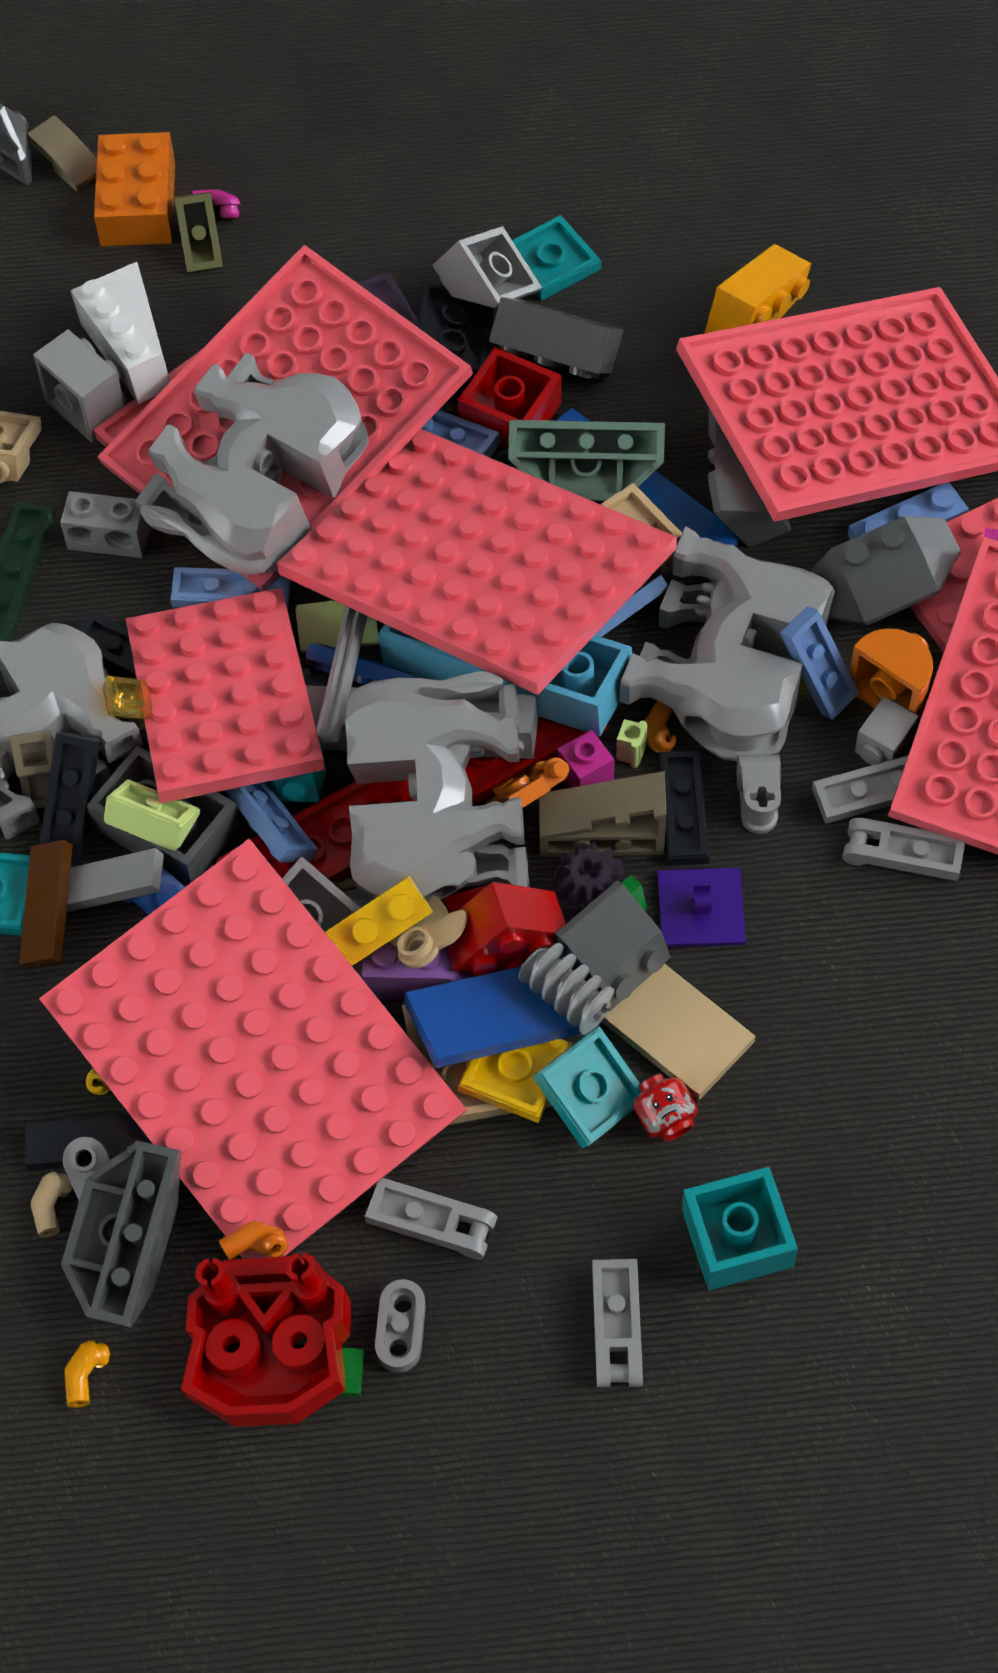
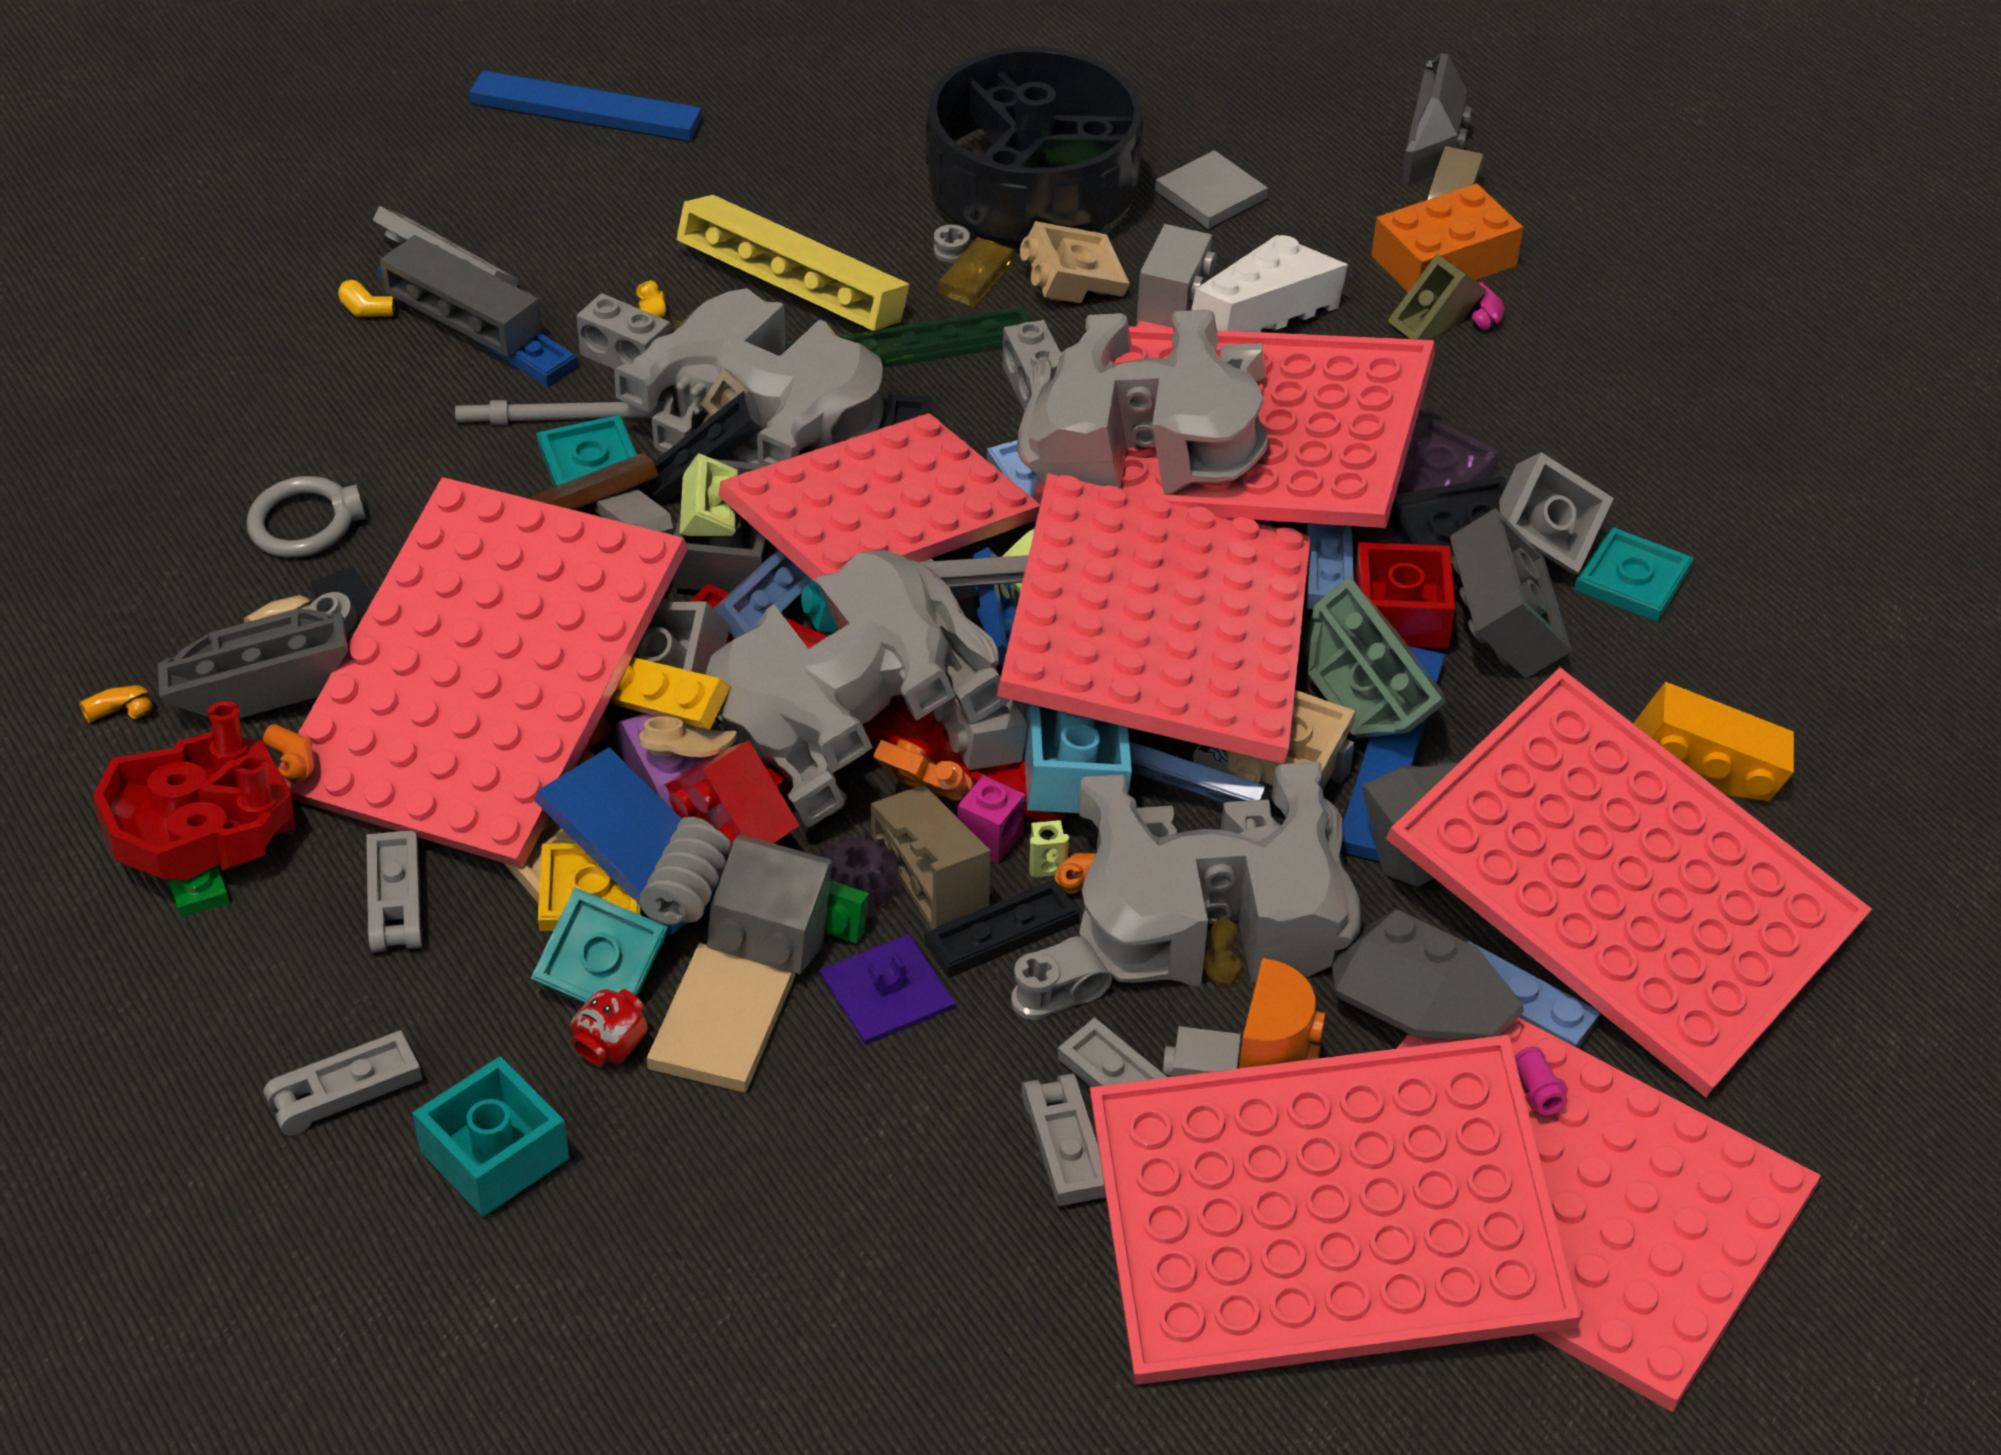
camera: 60 degrees right, 15 degrees down
(127, 697) = (819, 426): clear yellow plate -> none
(398, 1327) = (262, 909): light grey plate -> none
(822, 663) = (1232, 947): medium blue plate -> none

